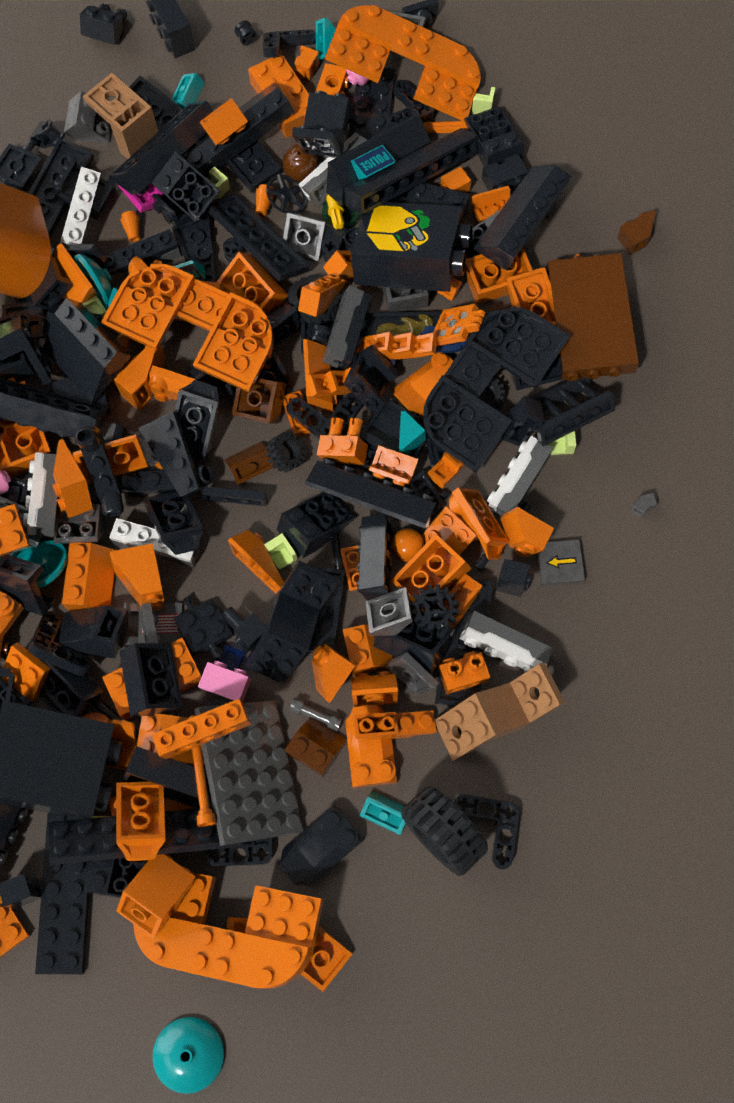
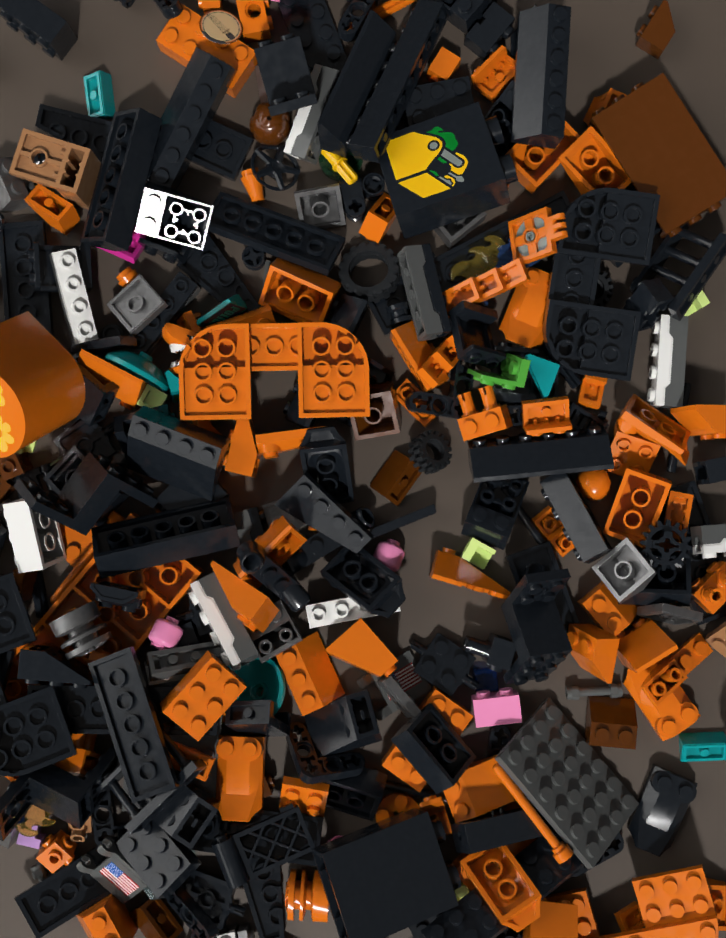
camera: 30 degrees left, 15 degrees up
(104, 147) = (53, 209): none -> orange slope
(122, 237) = (137, 305): none -> flat silver tile
(201, 729) = (519, 780): orange brick -> none
(209, 516) = (390, 554): none -> bright pink head
(219, 181) = (195, 187): yellowish green panel -> none
(224, 122) = (177, 127): orange brick -> none
(300, 79) = (221, 26): none -> tan sticker
(320, 294) = (380, 269): orange slope -> none
(372, 162) = (359, 96): slope -> none
(386, 416) = (513, 373): none -> bright green bracket

